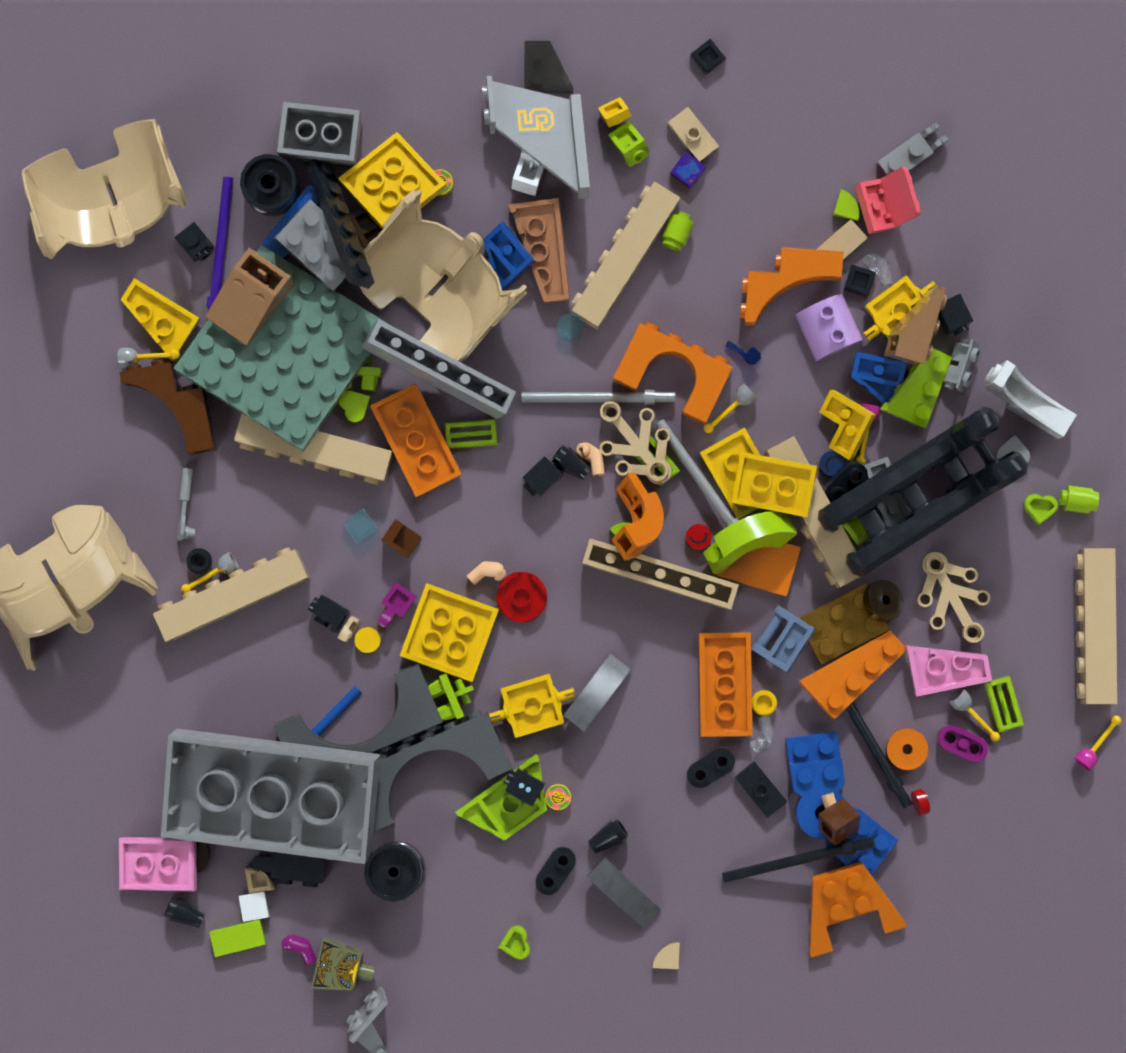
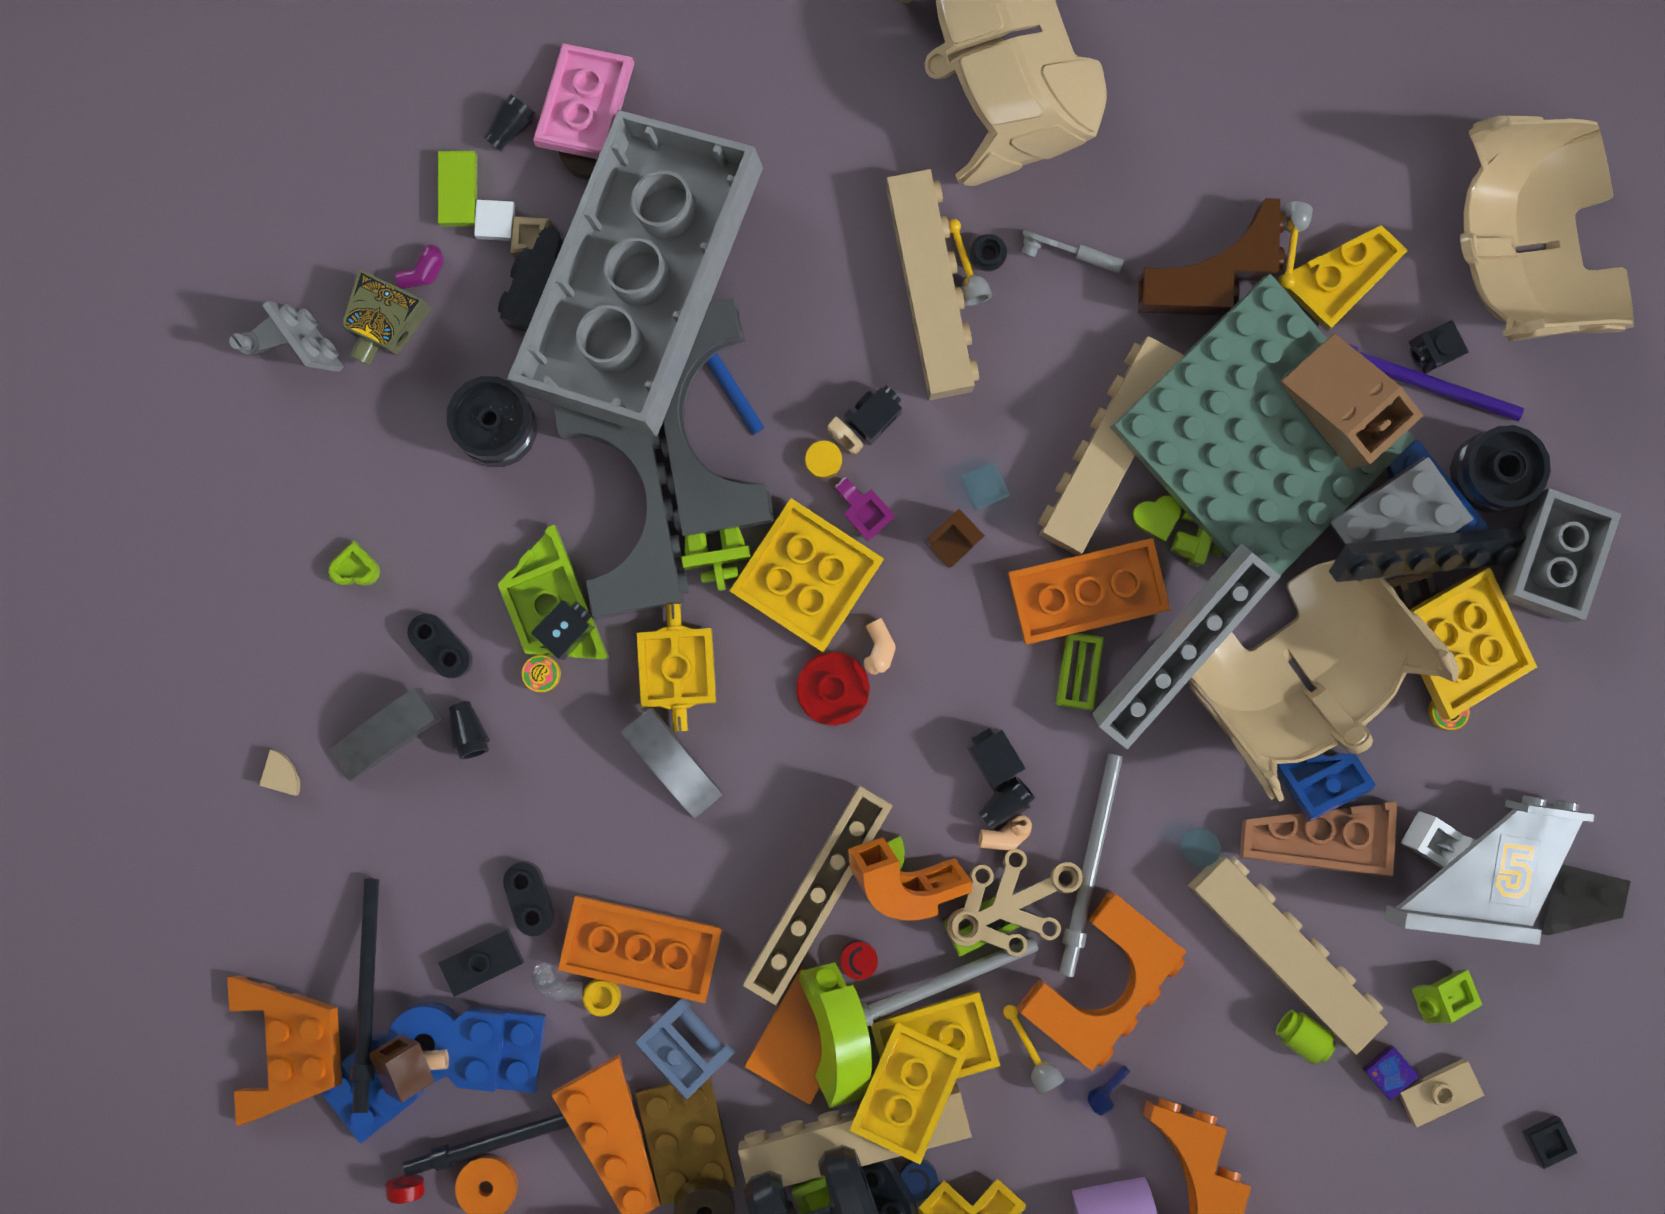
camera: 105 degrees right, 0 degrees up
(614, 112) = (1498, 987): yellow plate -> none

